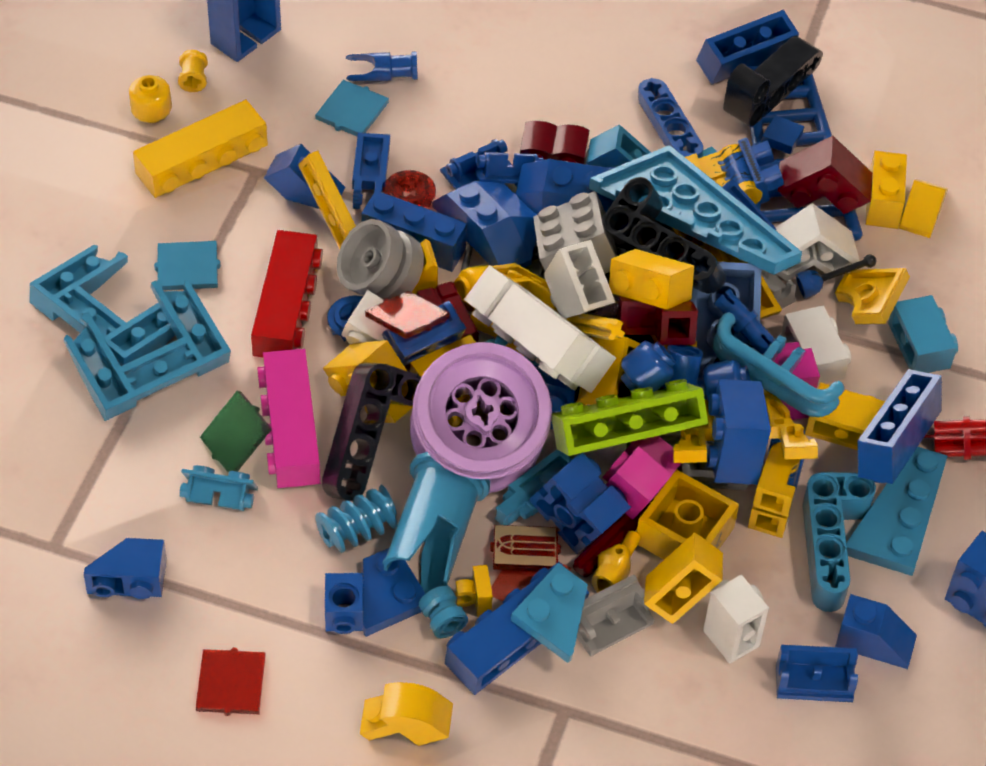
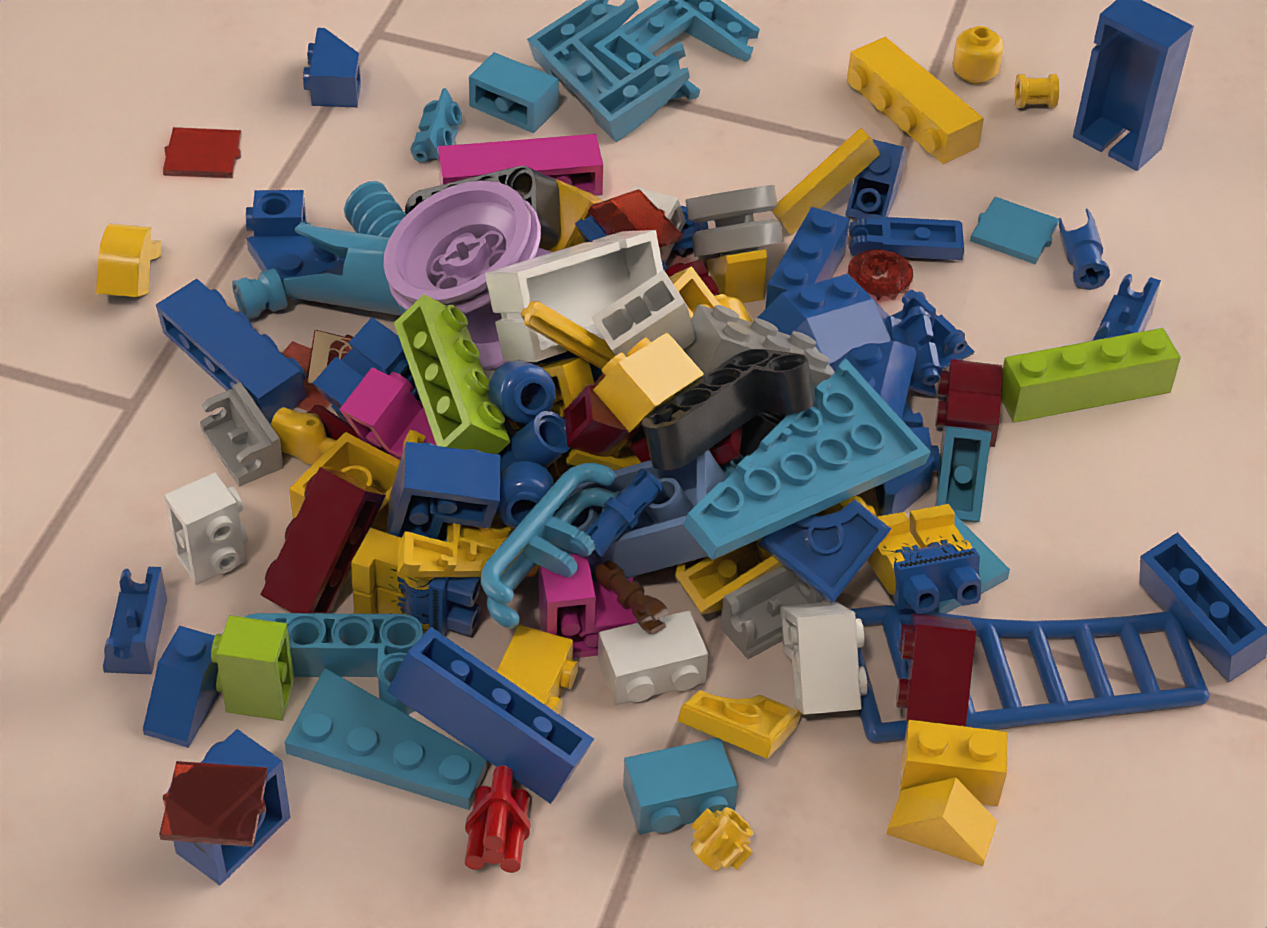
camera: 90 degrees right, 5 degrees down
(172, 426) = (513, 92): none -> dark azure brick
(188, 262) = (748, 106): dark azure piece -> none
(235, 432) = (500, 130): clear green piece -> none
(286, 293) = (696, 165): red brick -> none
(464, 52) = (1128, 309): none -> blue hinge
(475, 590) = (284, 321): yellow tile -> none
(526, 73) = (1088, 374): none -> lime brick
(554, 611) = (228, 360): dark azure wing -> none
(665, 123) = (1091, 512): blue beam -> none
(683, 578) = (259, 469): yellow brick -> none
(756, 92) = (1131, 625): black beam -> none
(757, 530) = (322, 543): none -> dark red brick
(783, 134) = (1039, 643): blue tile -> none
(797, 332) = (631, 595): none -> reddish brown piece
(811, 282) = (763, 667): hinge -> none
(871, 568) = (254, 667): none -> lime brick
(964, 312) = (721, 839): none -> yellow gear

